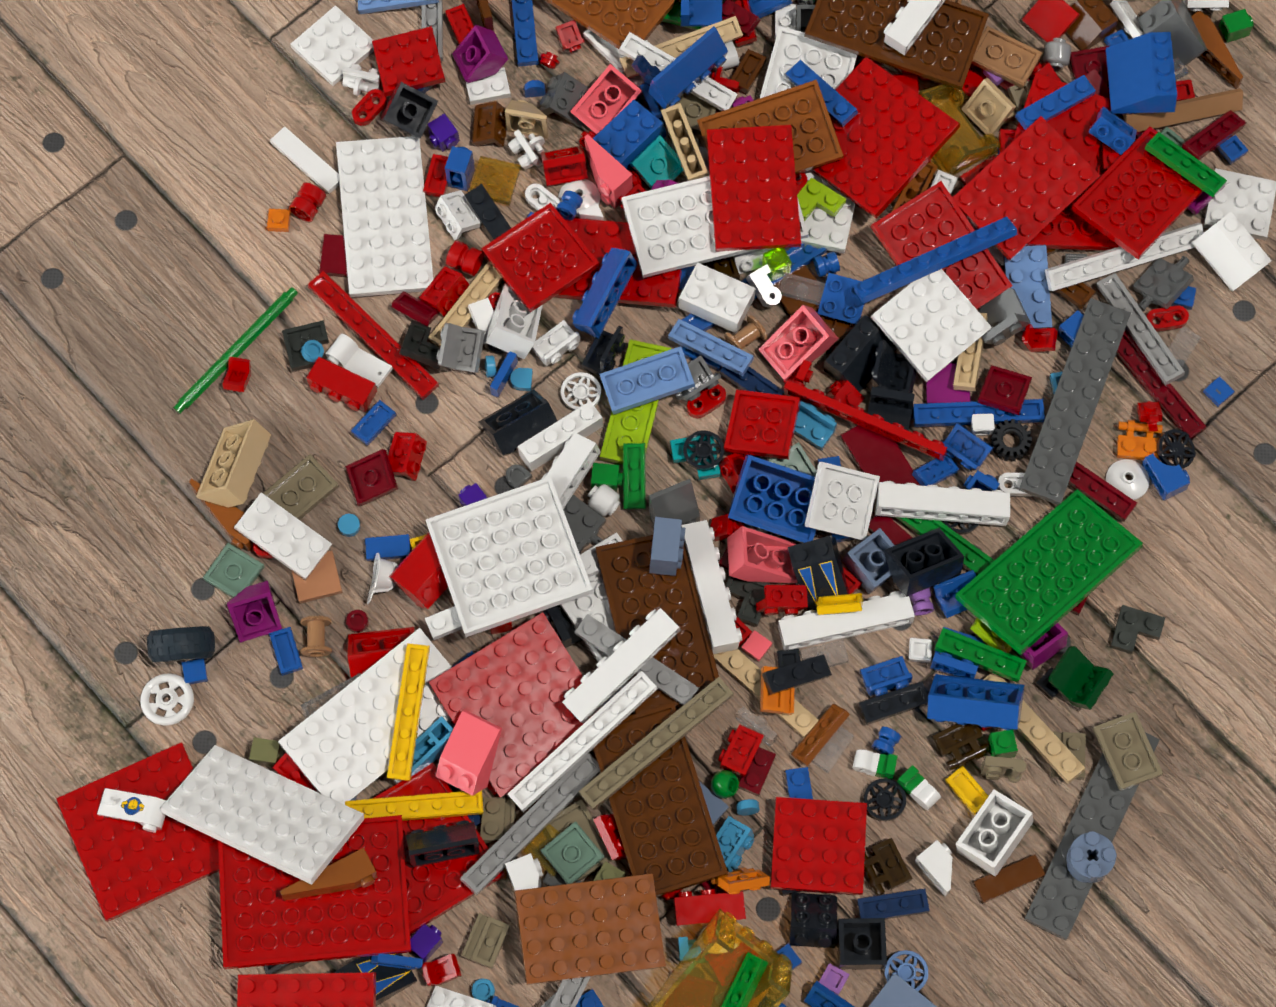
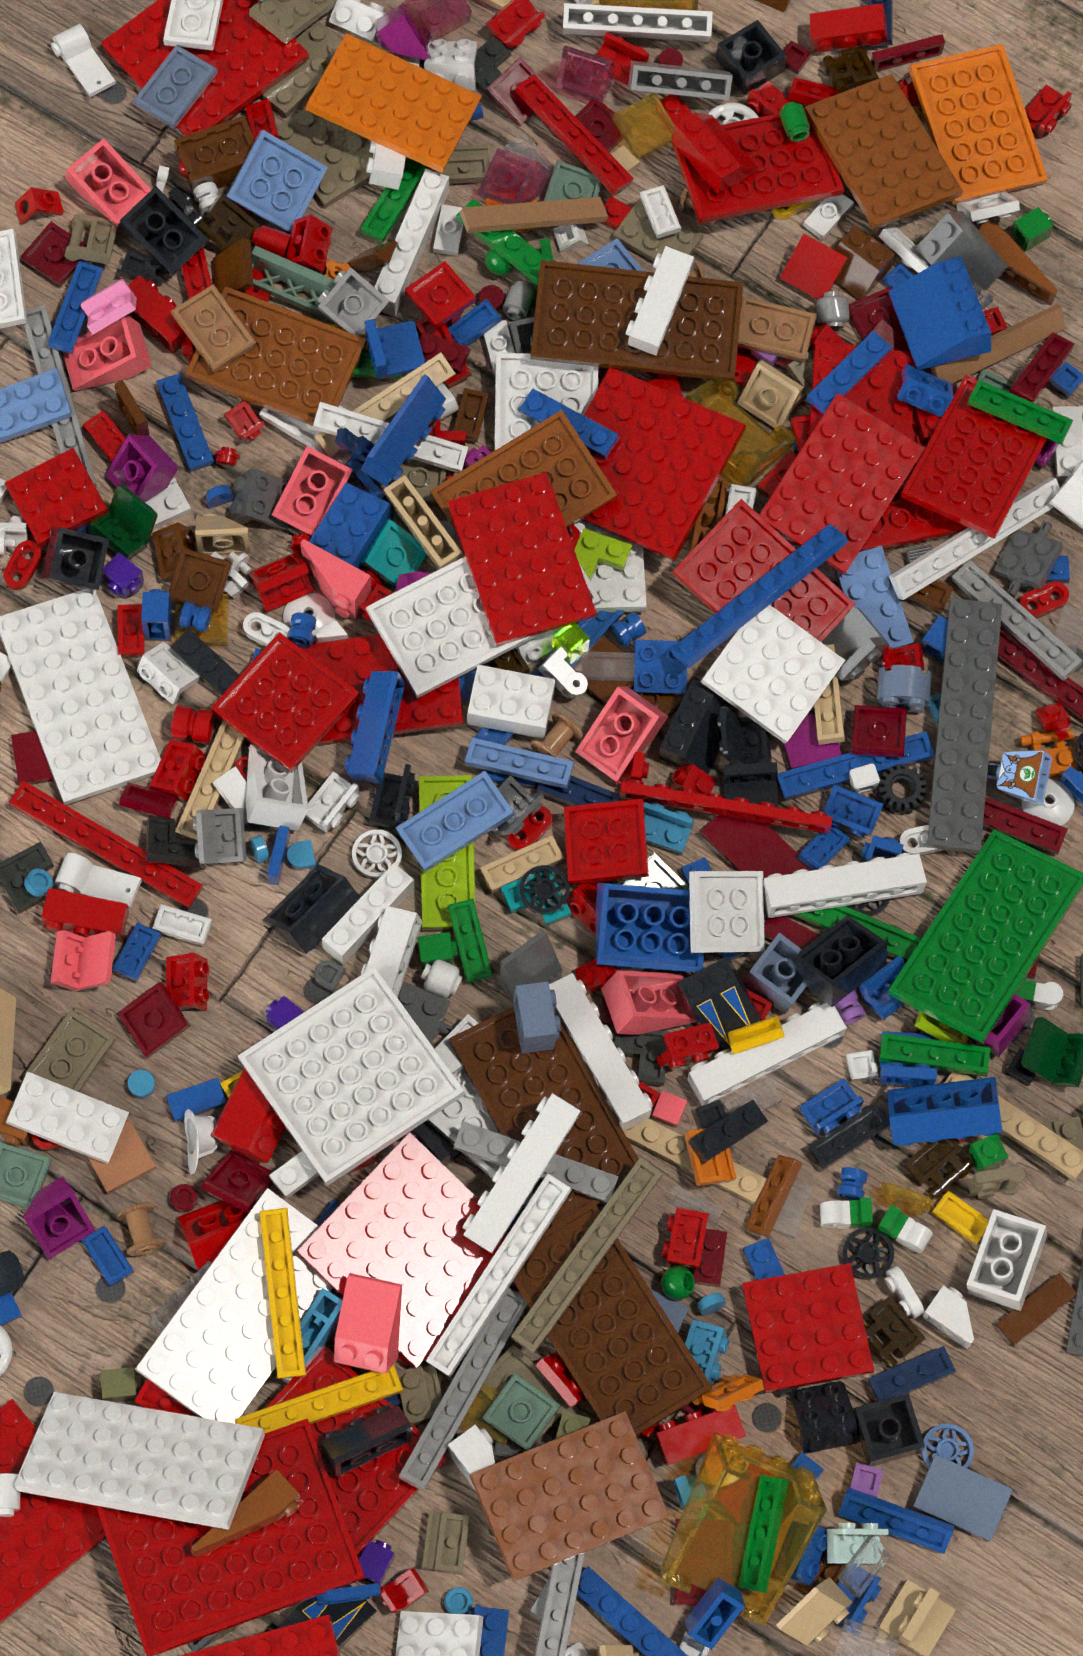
camera: 20 degrees left, 0 degrees up
(328, 419) = (82, 961): none -> coral bracket
(400, 617) = (238, 1181): none -> dark red tile
(414, 410) = (182, 925): none -> white plate
(457, 94) = (126, 524): none -> dark green bracket
(488, 175) = (195, 616): none -> blue wheel
(500, 149) = (200, 579): none -> reddish brown tile
(687, 425) = (518, 863): none -> tan plate
(907, 847) = (898, 1283): none -> white plate
(918, 758) = (913, 1201): none -> clear yellow plate
(1034, 360) = (904, 688): none -> sand blue brick
(1078, 629) = (1039, 995): none -> white leg
(1112, 451) = (1022, 774): none -> torso

